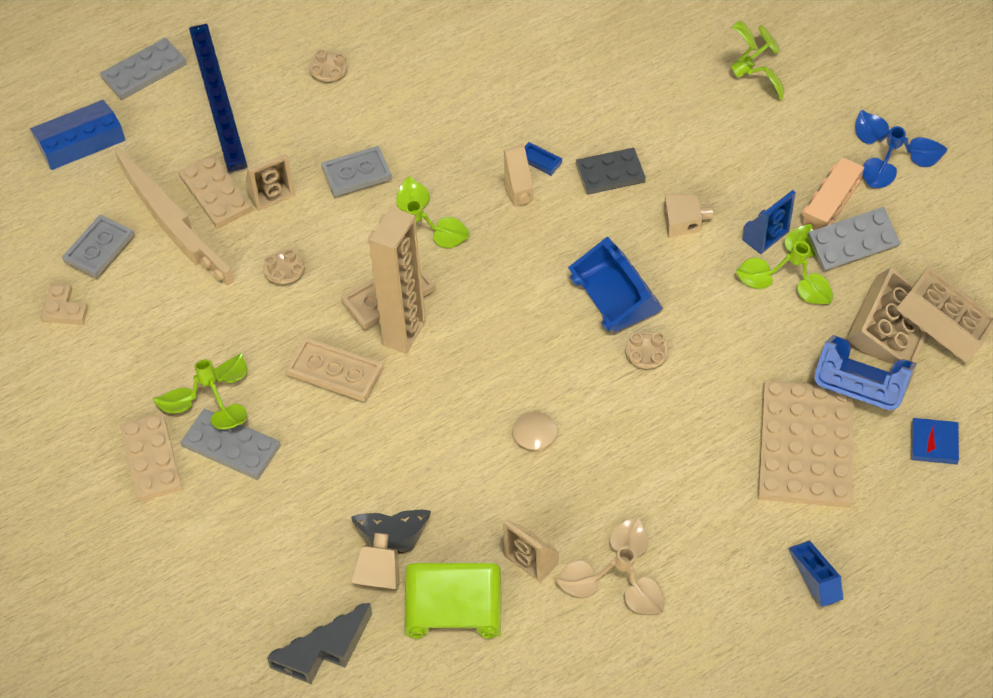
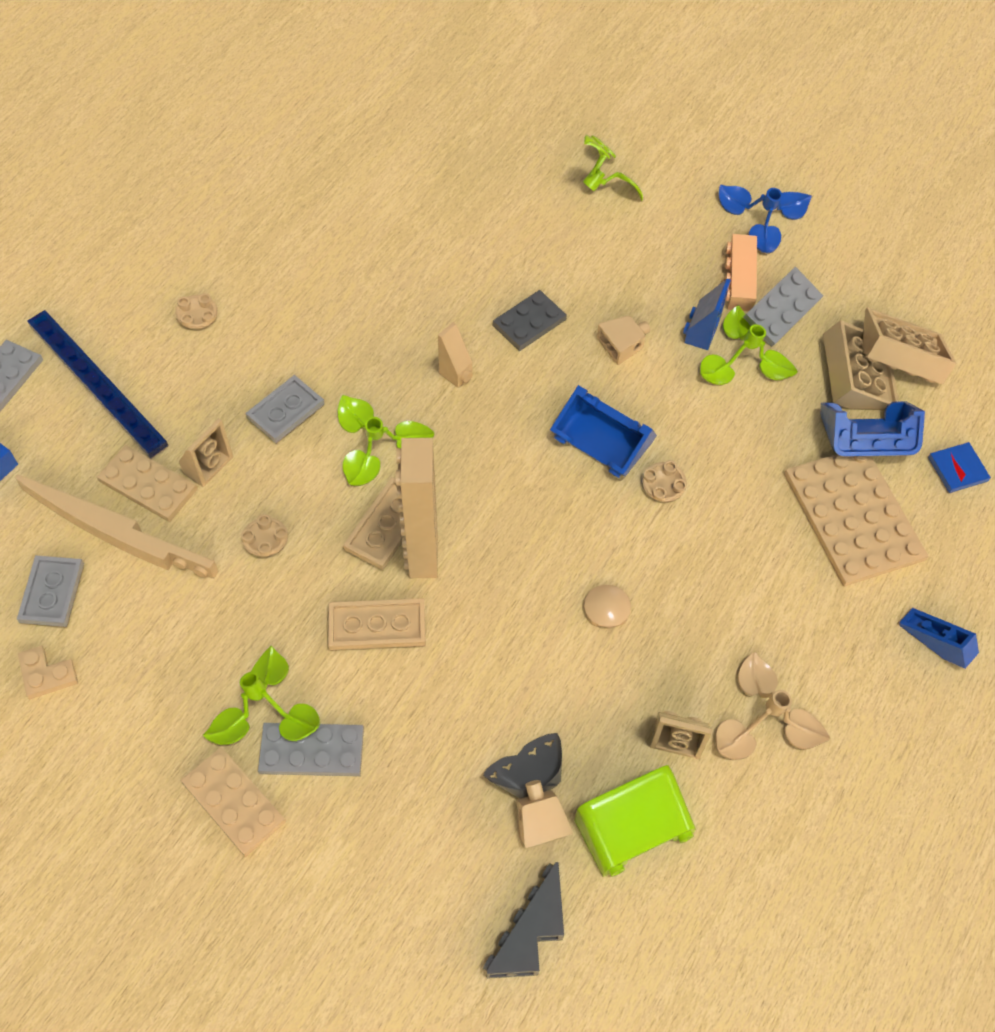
camera: 30 degrees left, 5 degrees up
(542, 159) = (468, 331): blue tile -> none

